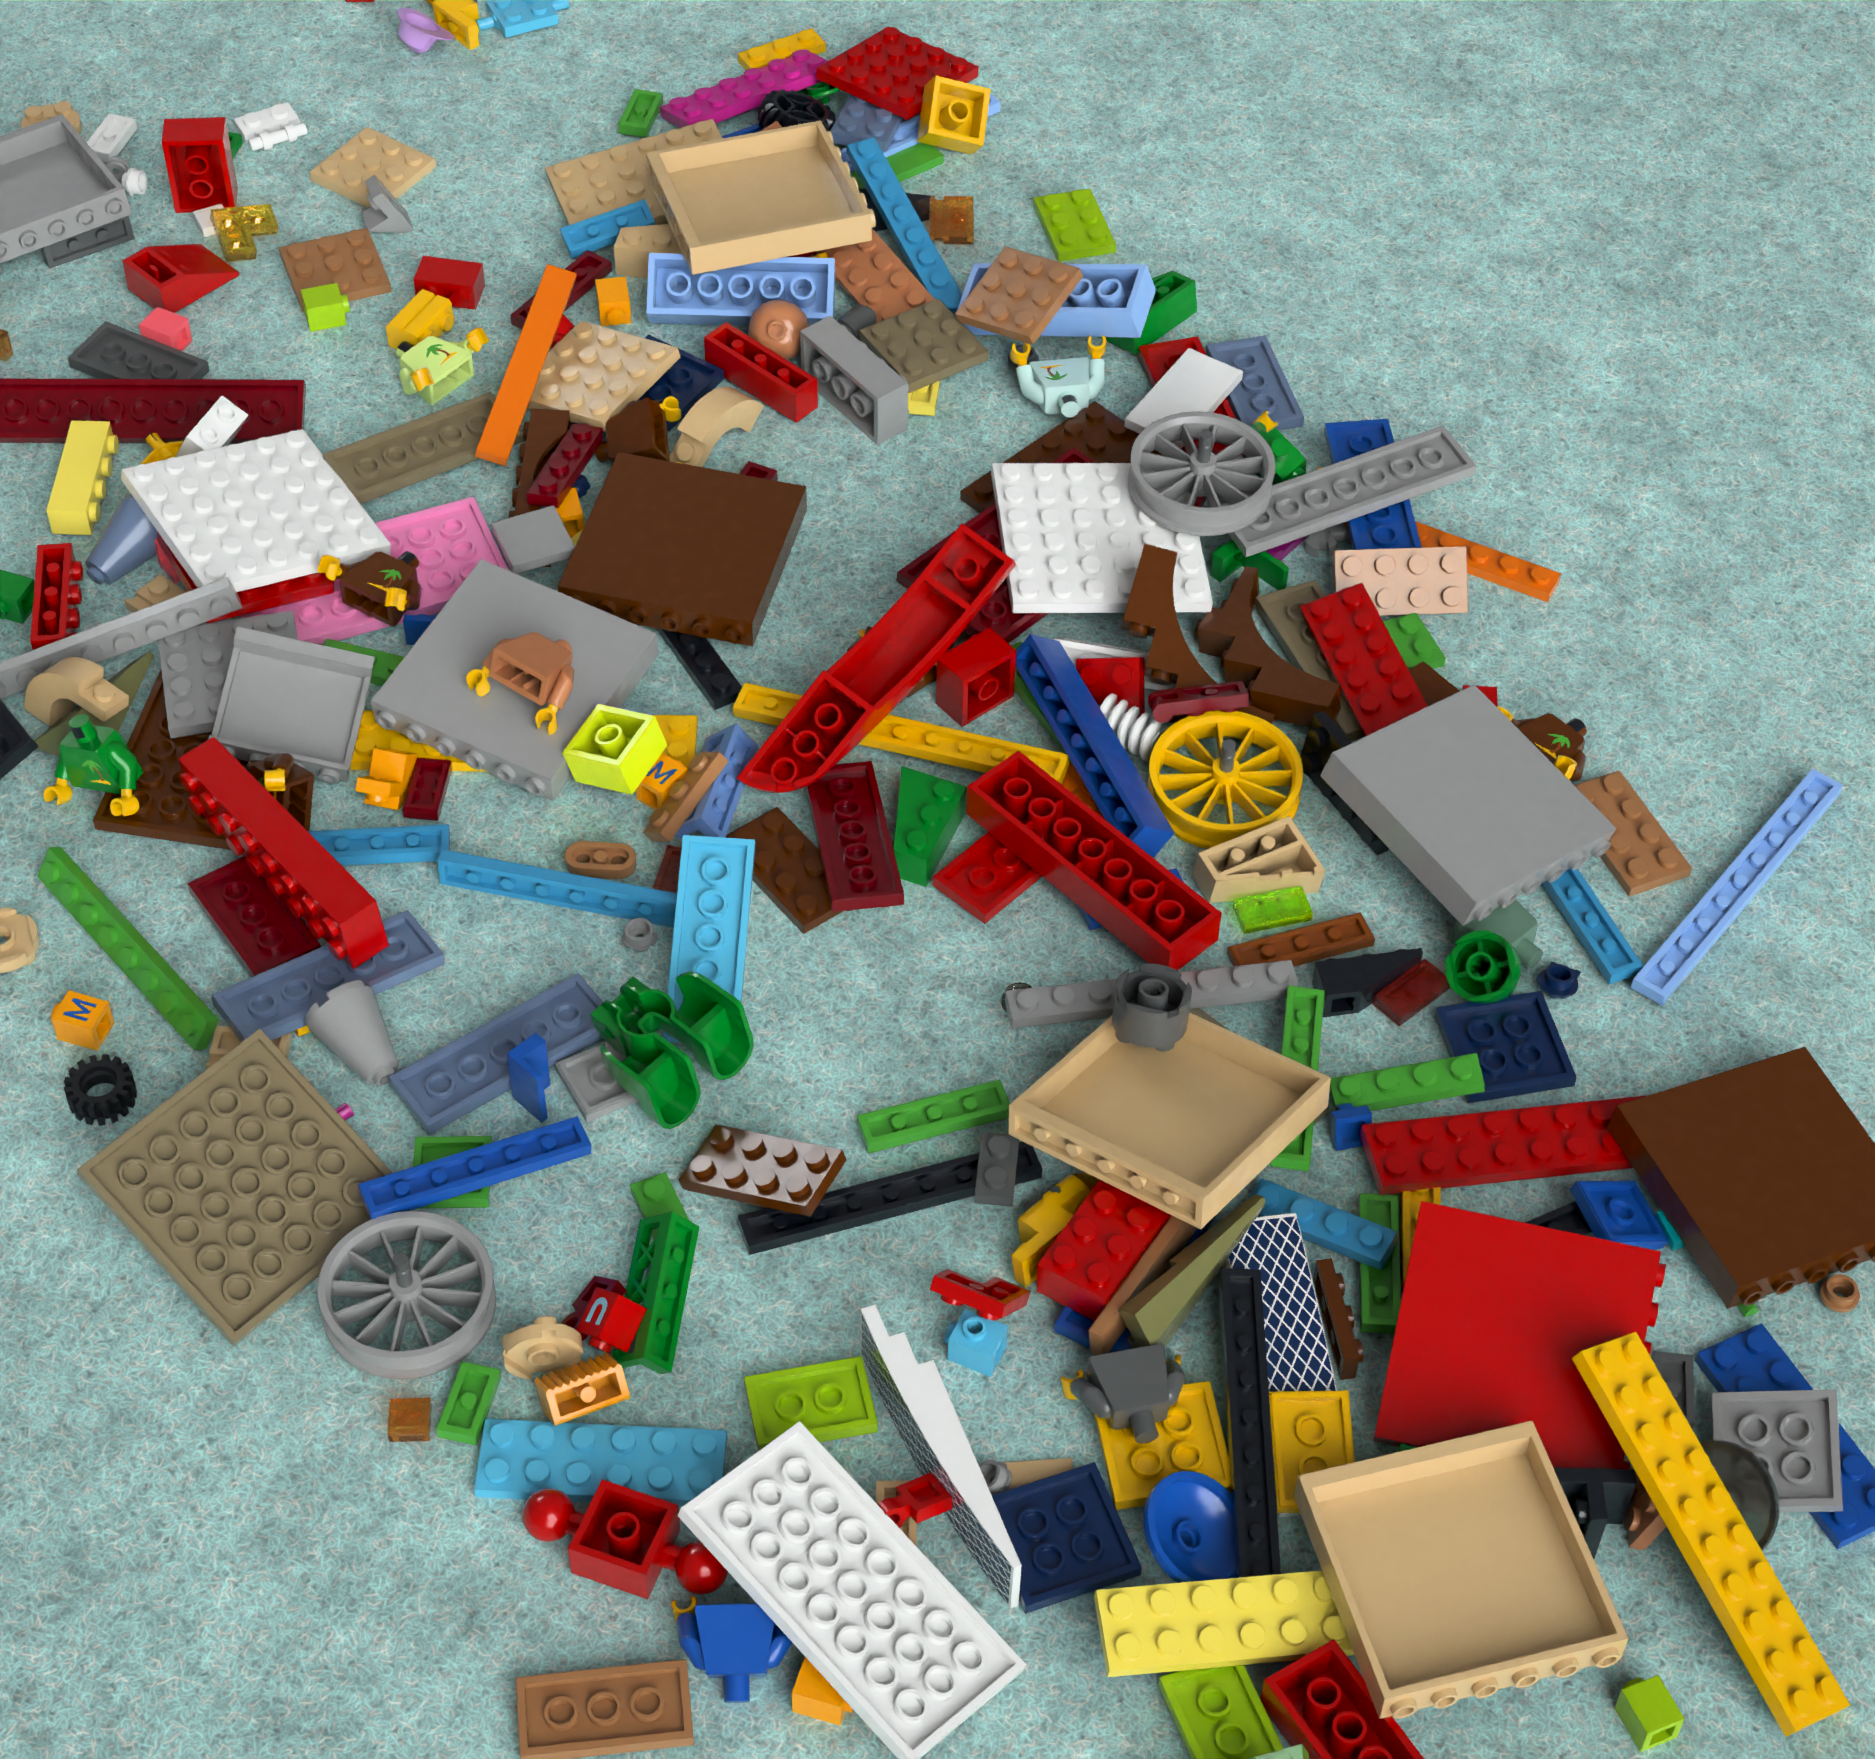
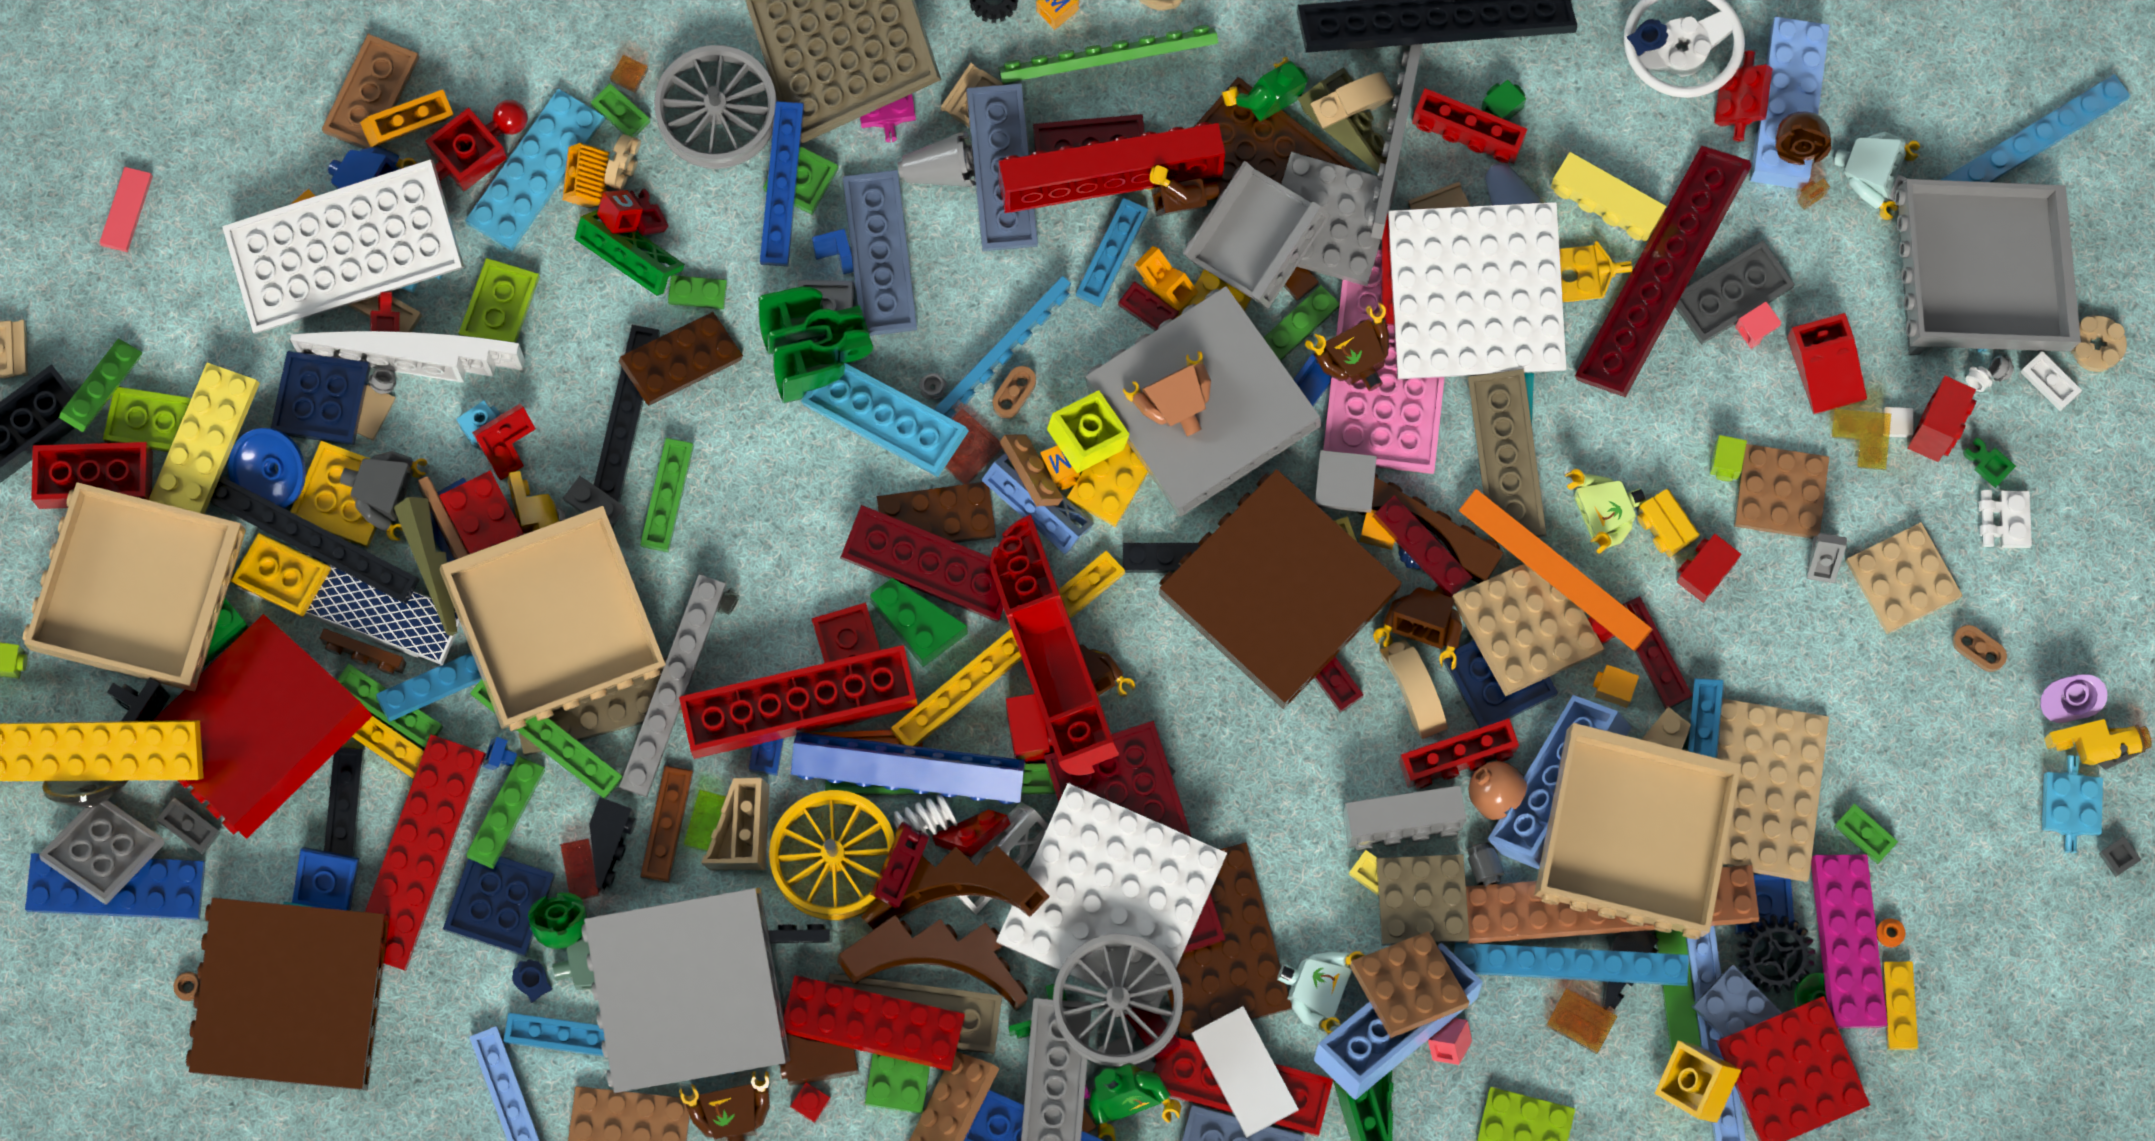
camera: 120 degrees right, 25 degrees up
(215, 428) = (1592, 299): white brick -> none
(412, 102) = (1980, 646): none -> medium nougat plate
(623, 1623) = (406, 118): none -> light orange brick
(719, 72) = (1886, 940): none -> orange plate
(1151, 1007) = (626, 625): dark grey brick -> none

